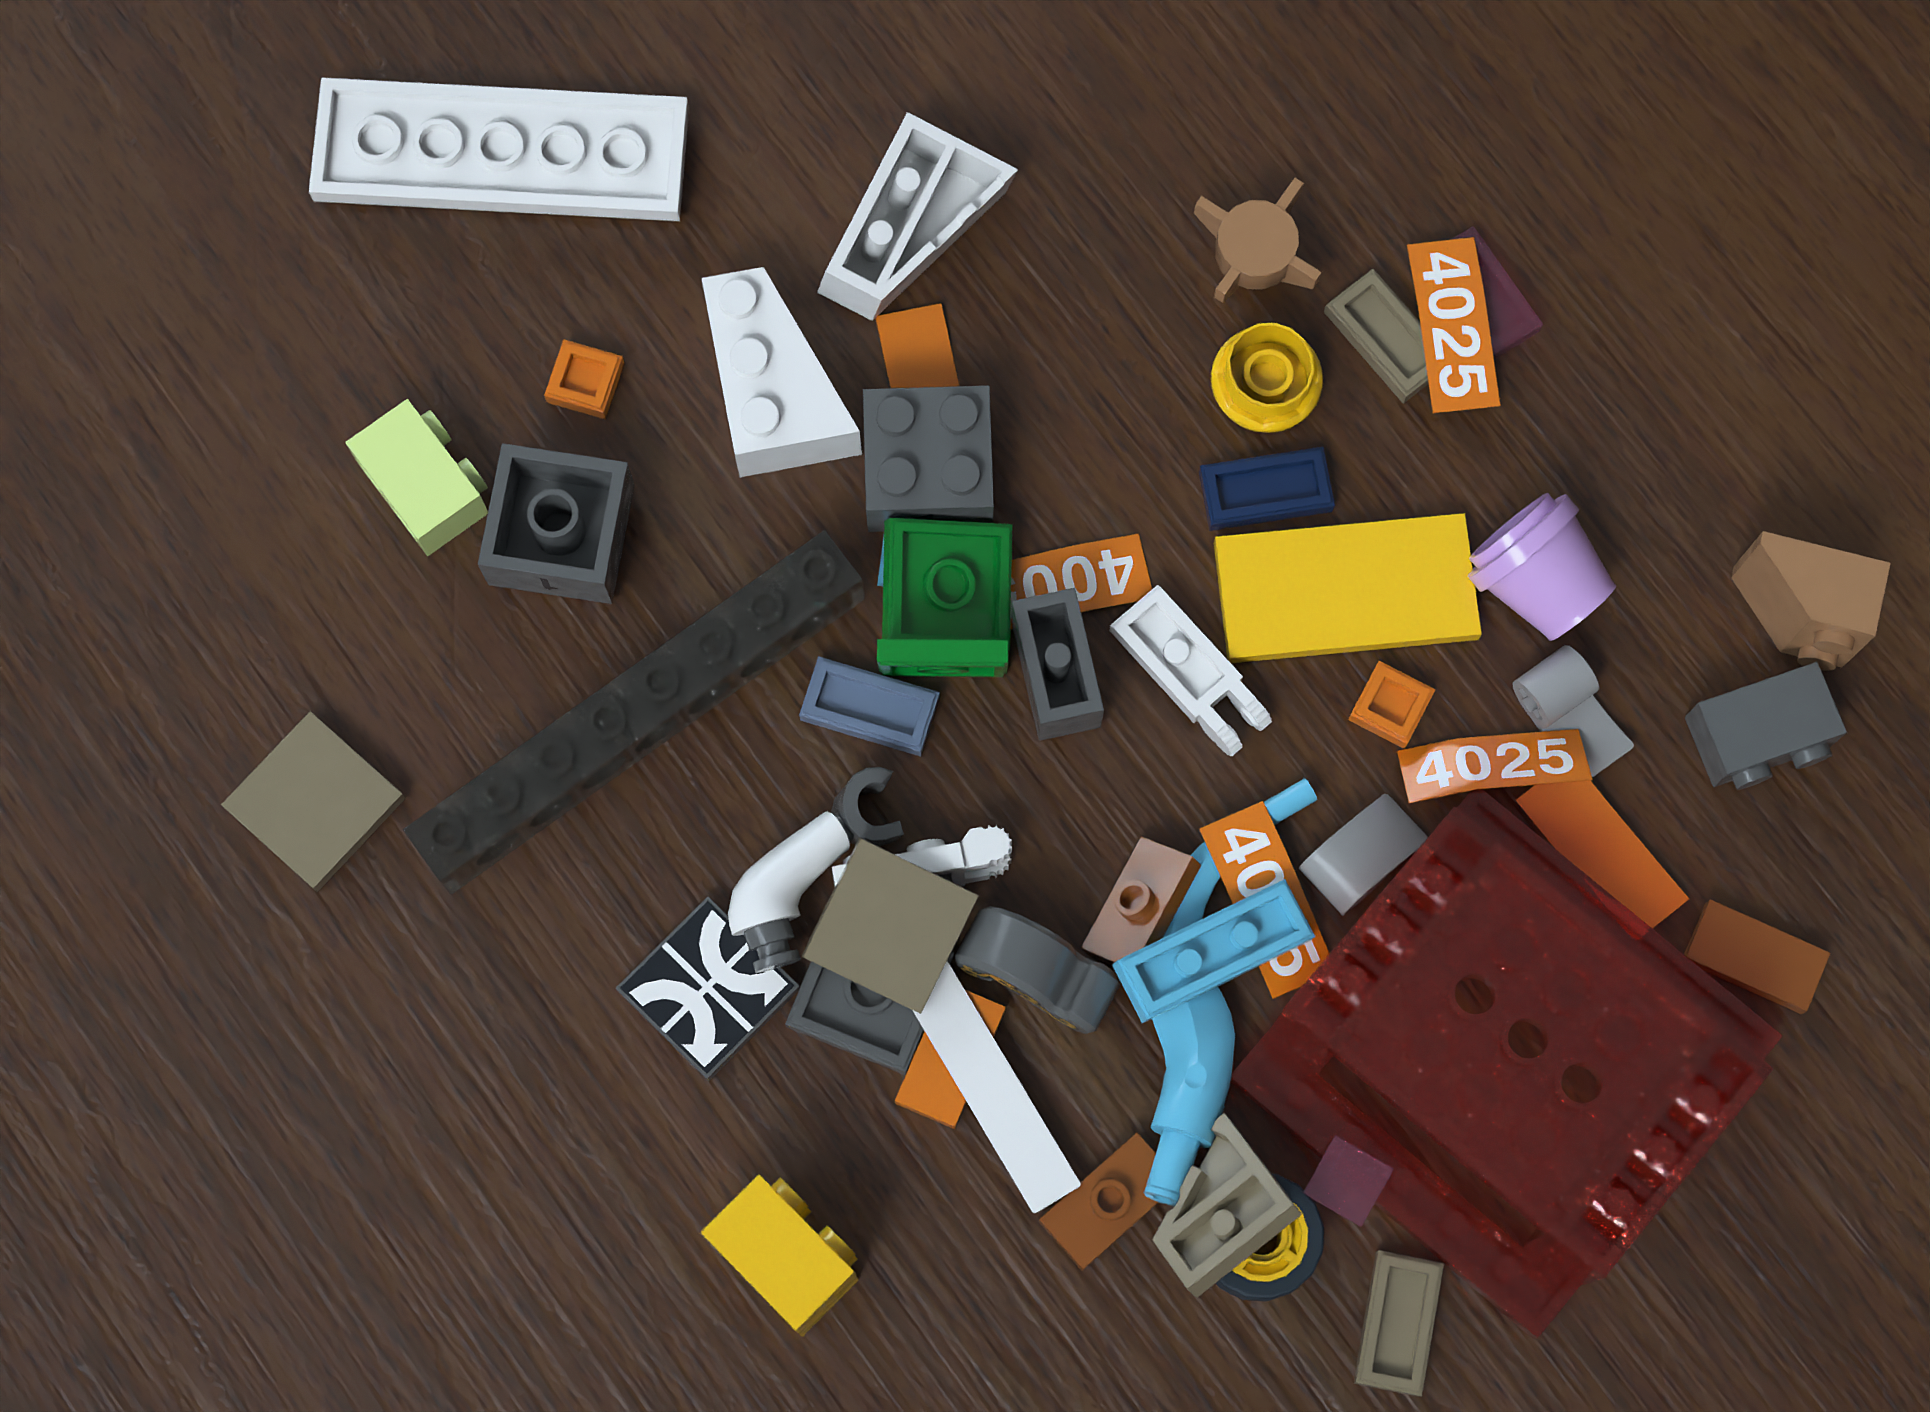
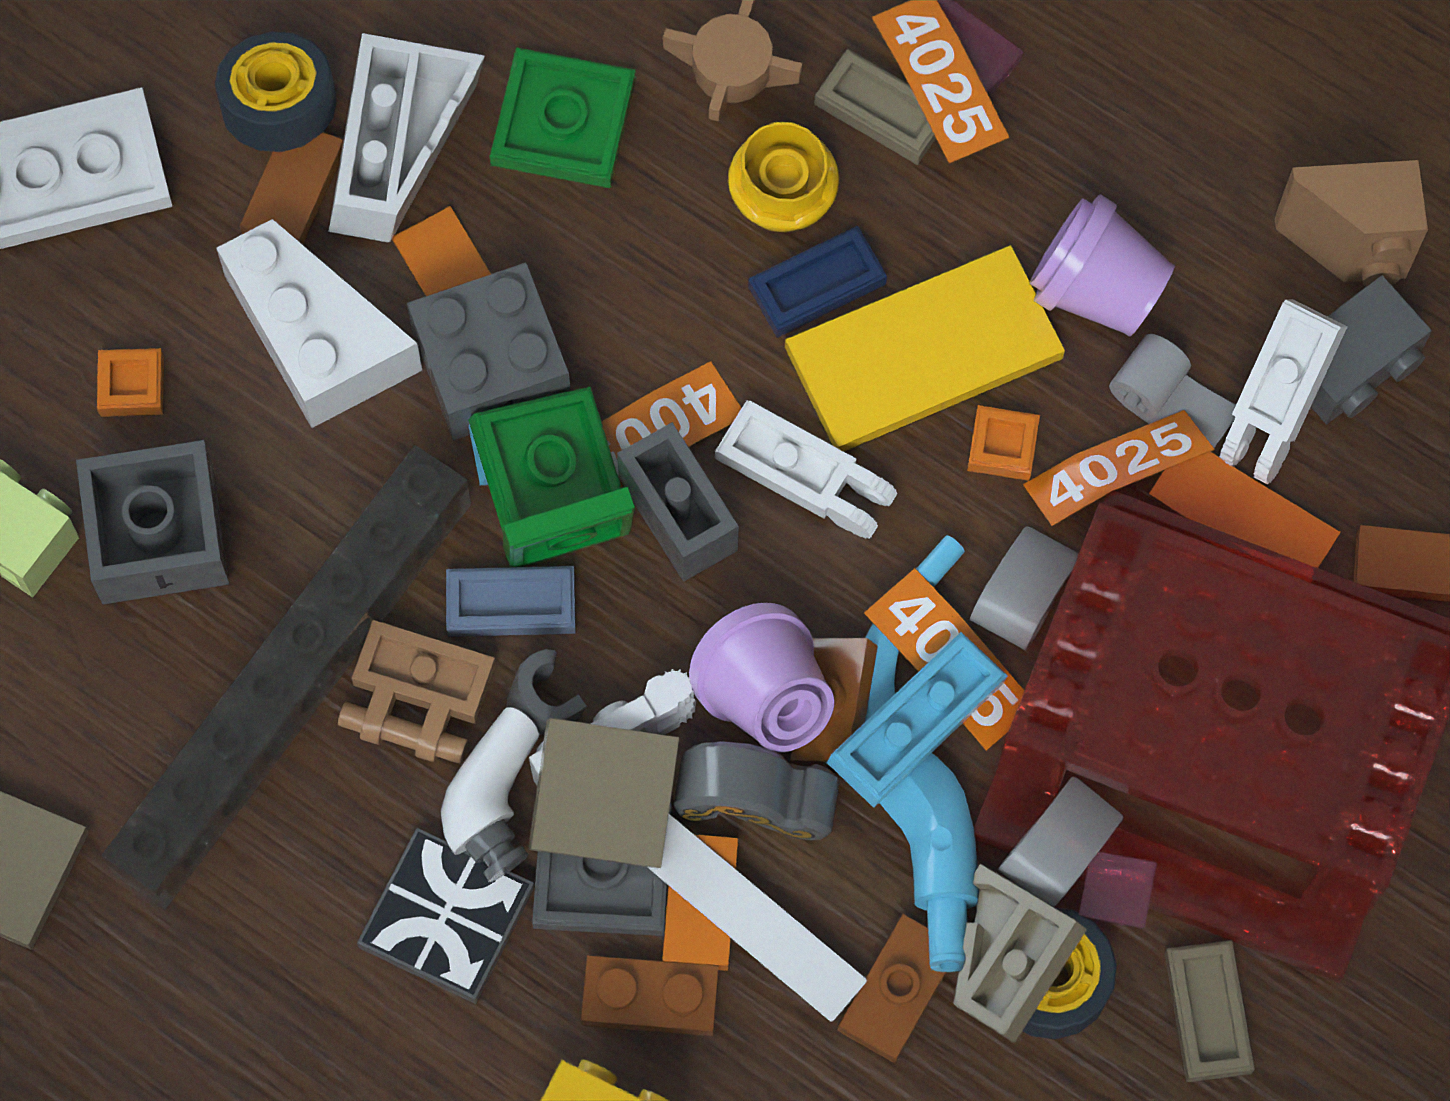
camera: 20 degrees left, 5 degrees down
(764, 751) = (422, 673): none -> medium nougat plate
(799, 235) = (294, 186): none -> dark orange tile
(805, 113) = (276, 91): none -> black wheel
(872, 1129) = (649, 995): none -> dark orange plate
(1077, 250) = (563, 117): none -> green tile
(1079, 863) = (763, 676): none -> lavender piece
(1309, 1119) = (1061, 843): none -> light grey panel
(1680, 740) = (1282, 385): none -> white hinge

